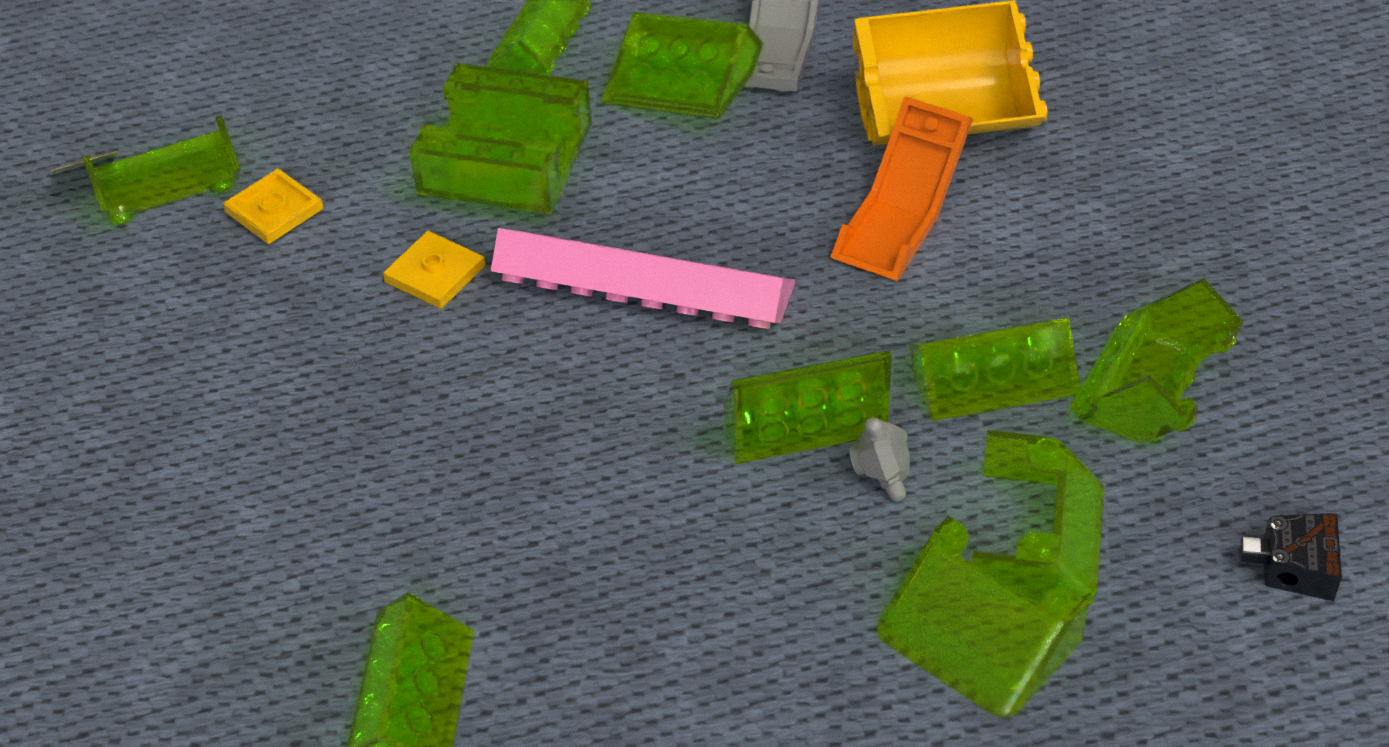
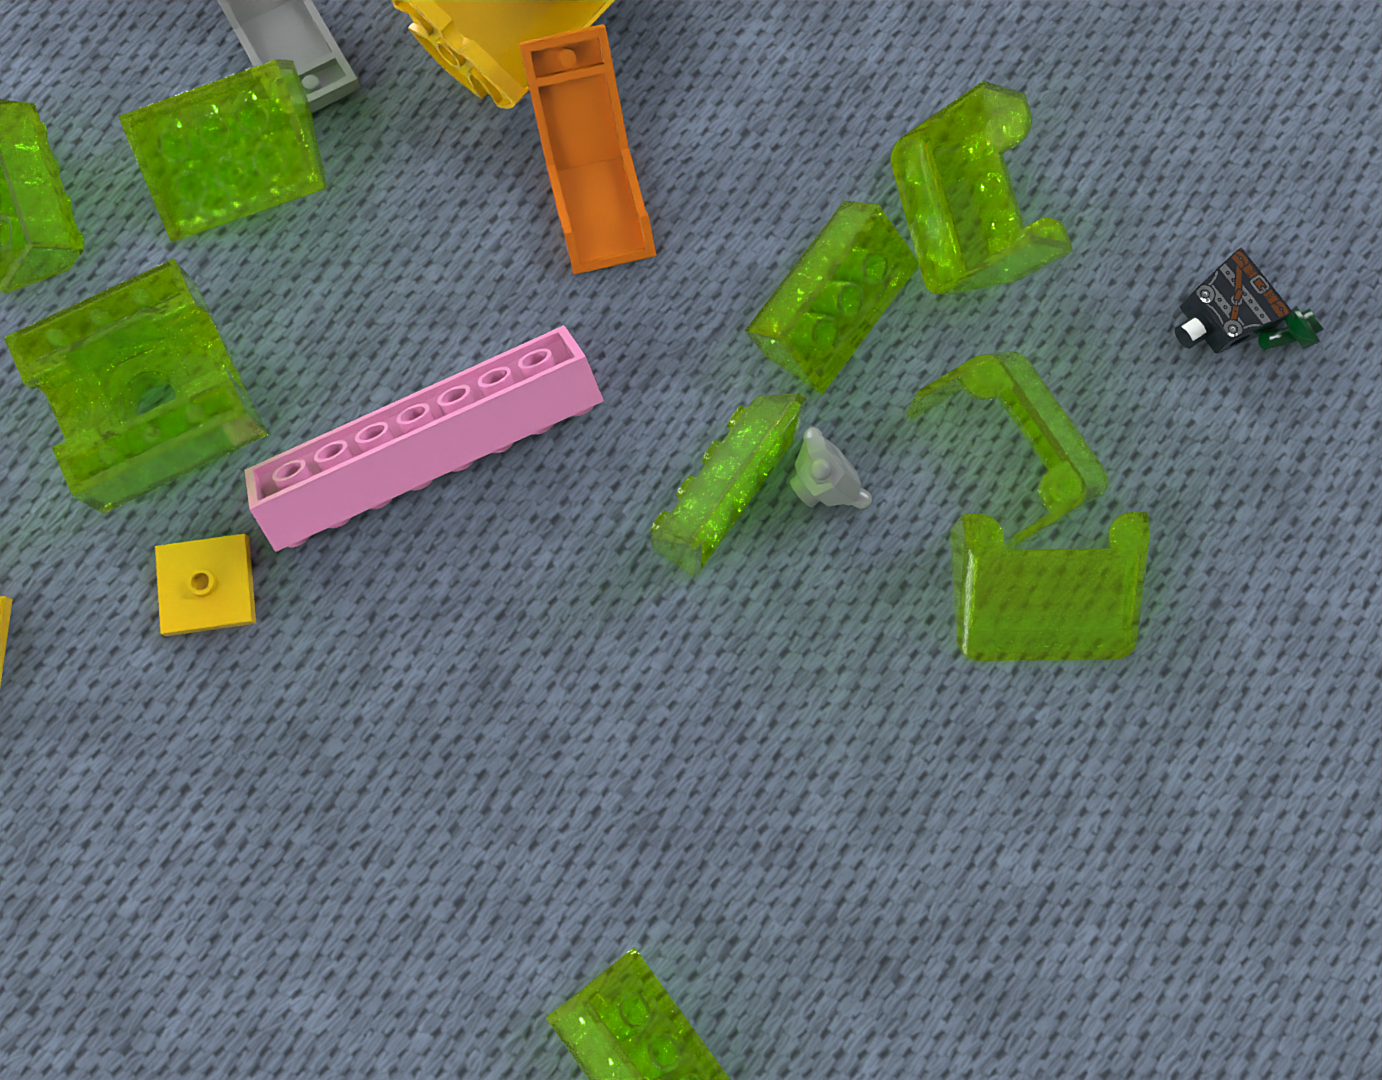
camera: 45 degrees left, 30 degrees up
(1350, 609) = (1300, 328): none -> dark green plate

